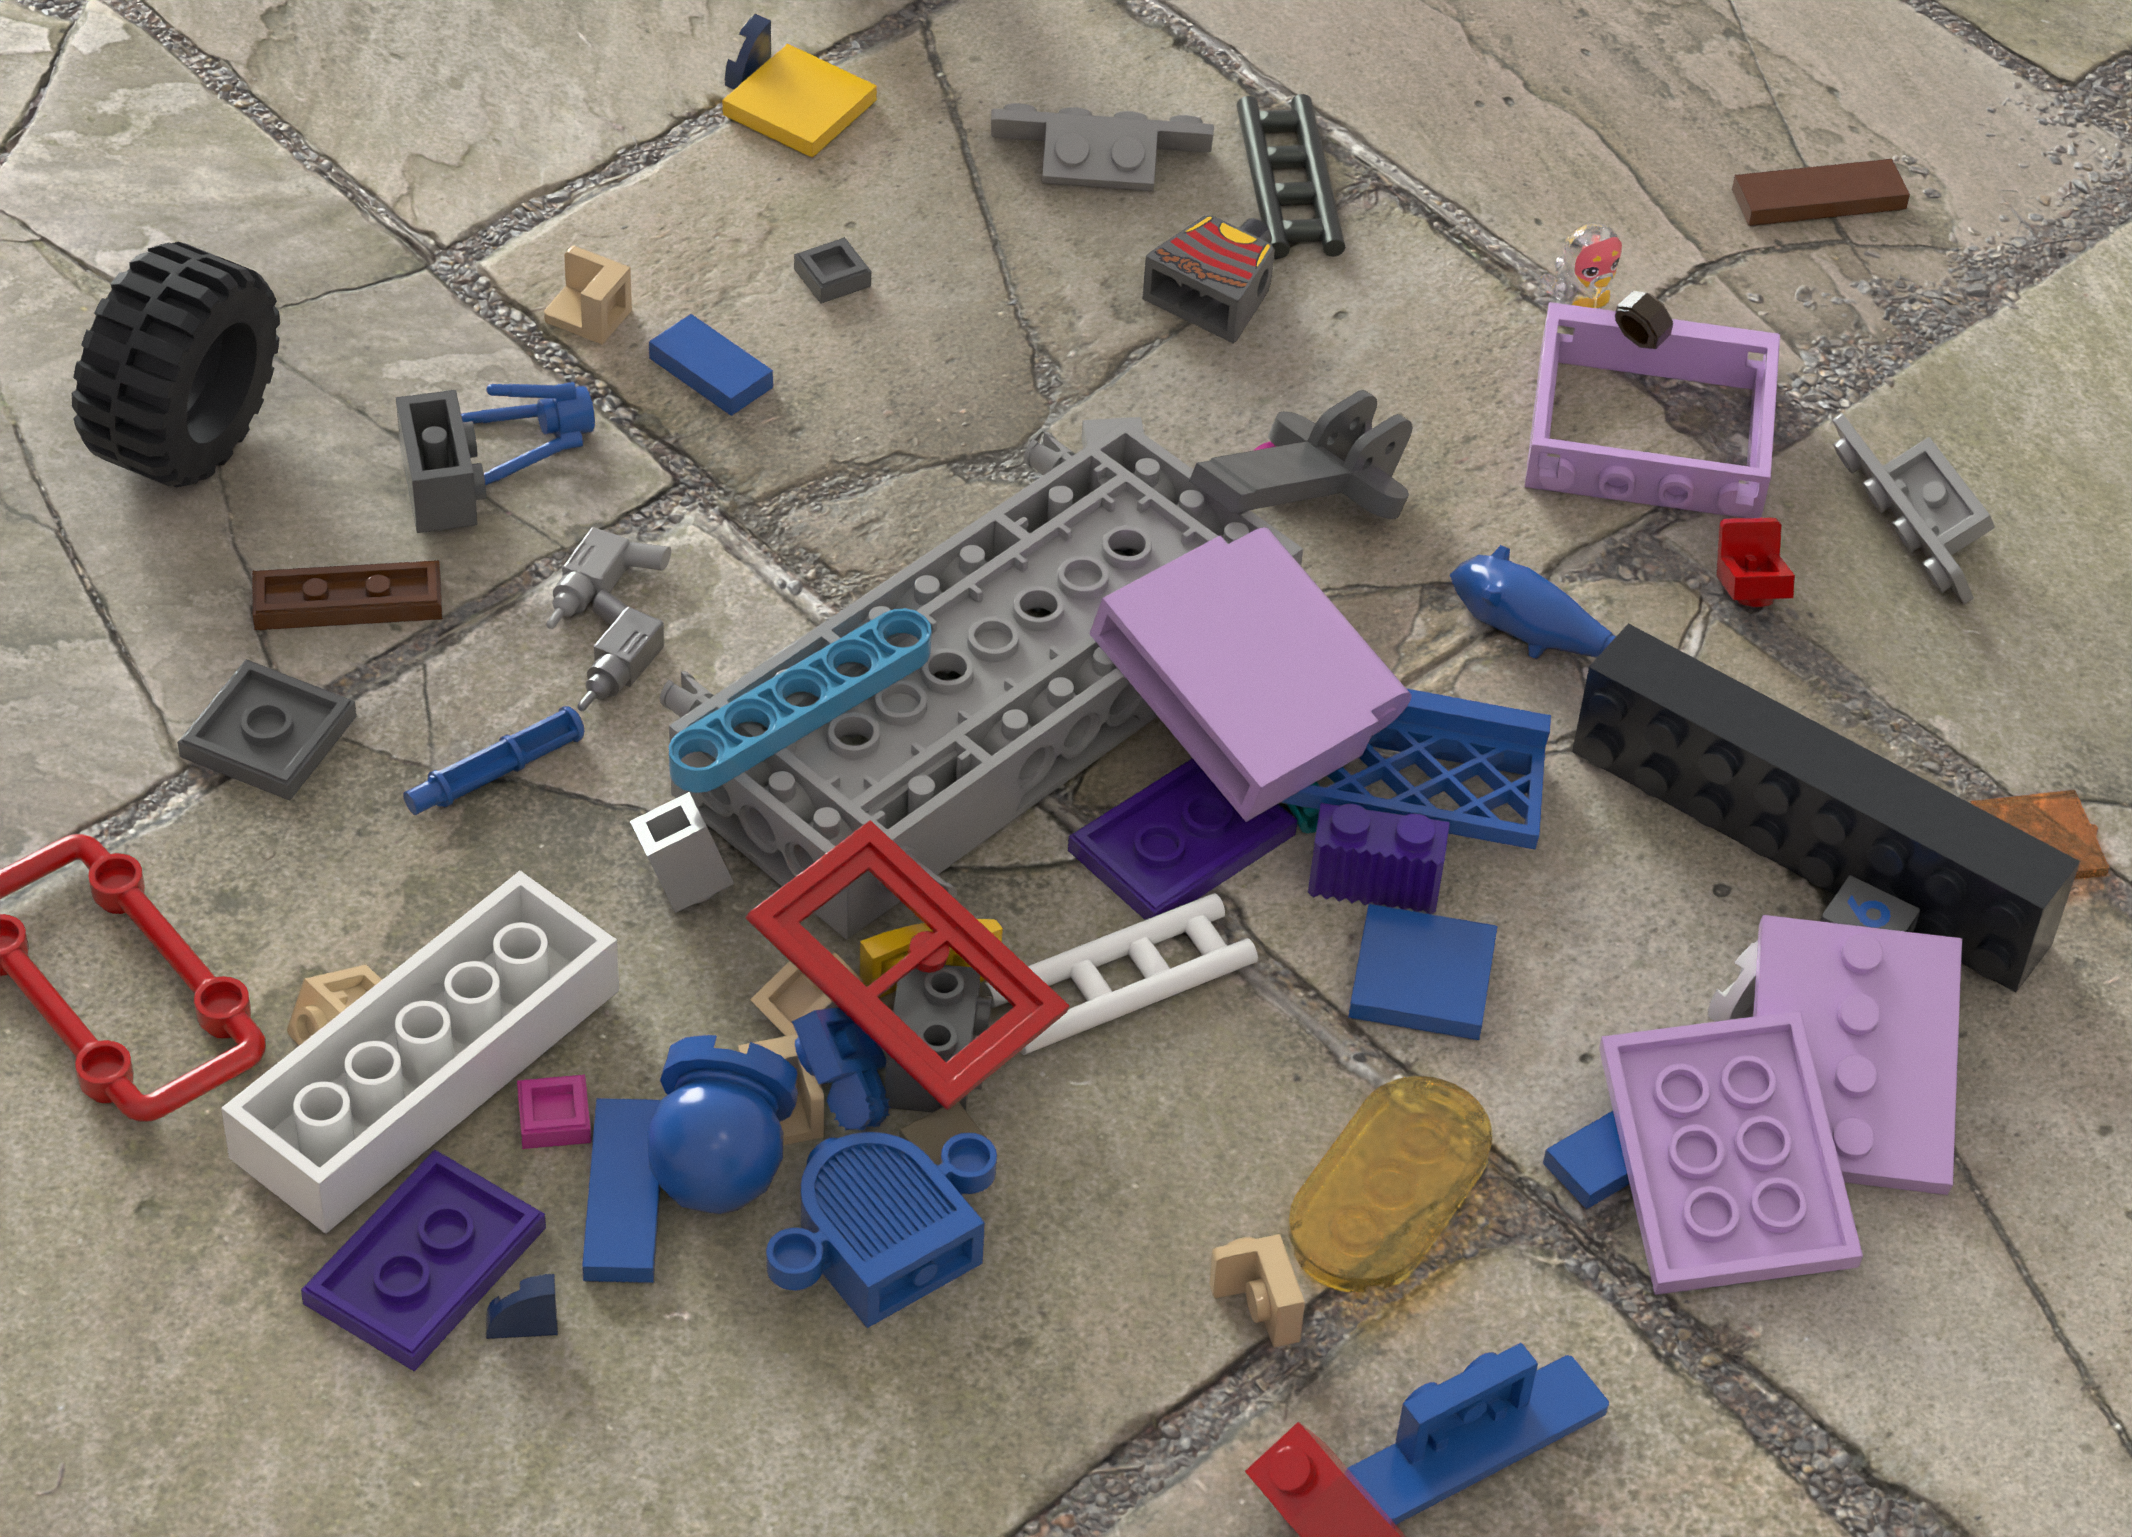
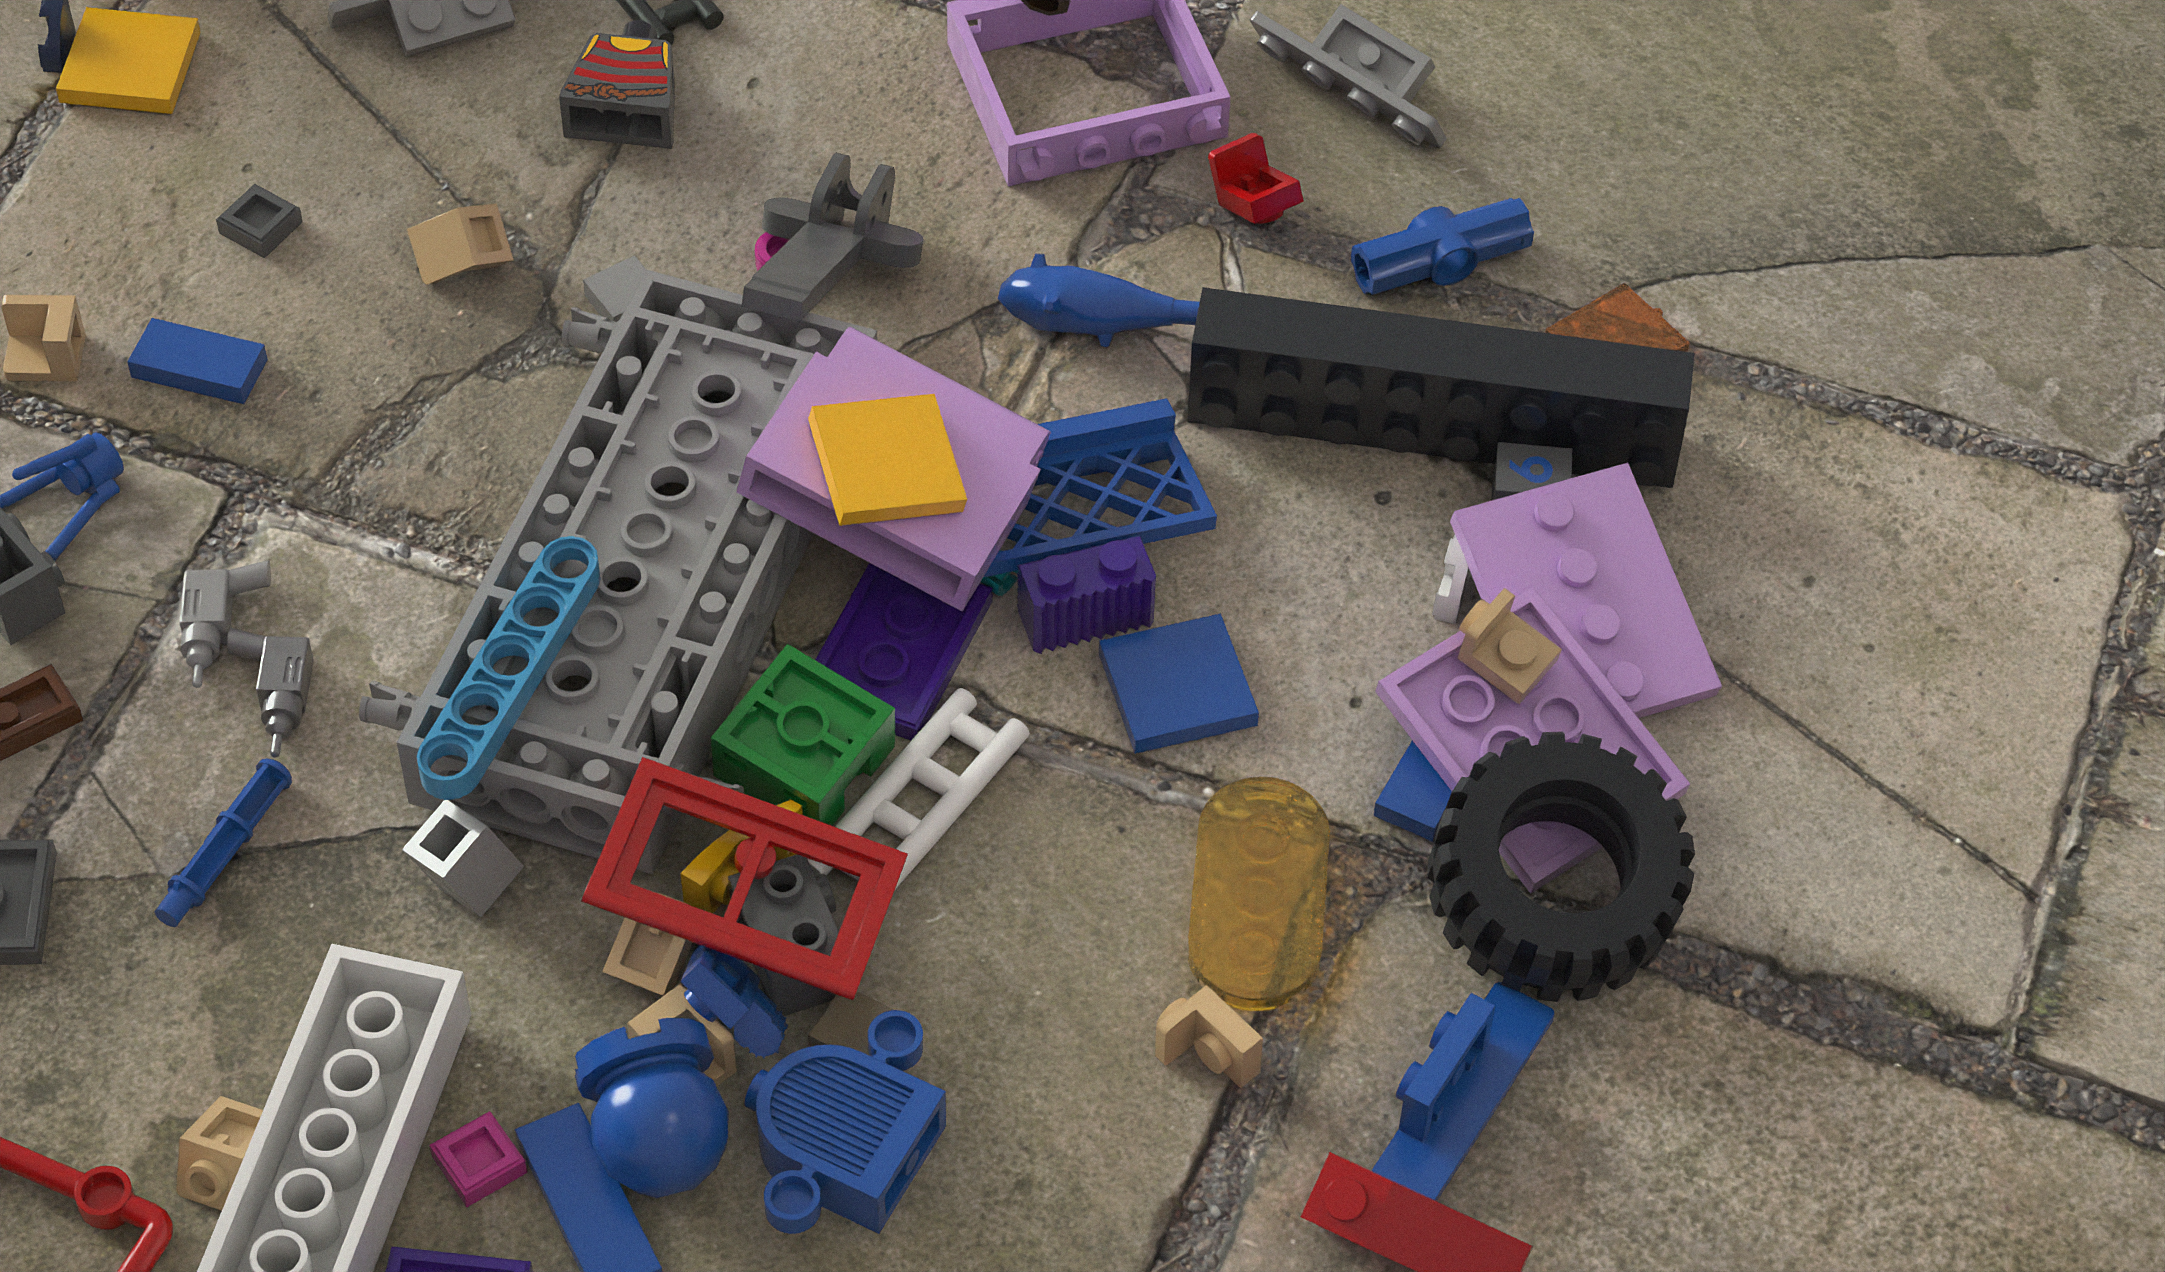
camera: 25 degrees left, 5 degrees up
(992, 347) = (460, 242): none -> tan panel
(1040, 873) = (803, 736): none -> green piece
(1231, 651) = (887, 459): none -> yellow tile
(1697, 1188) = (1581, 789): none -> black tyre
(1739, 1052) = (1505, 647): none -> tan bracket
(1908, 687) = (1442, 246): none -> blue piece

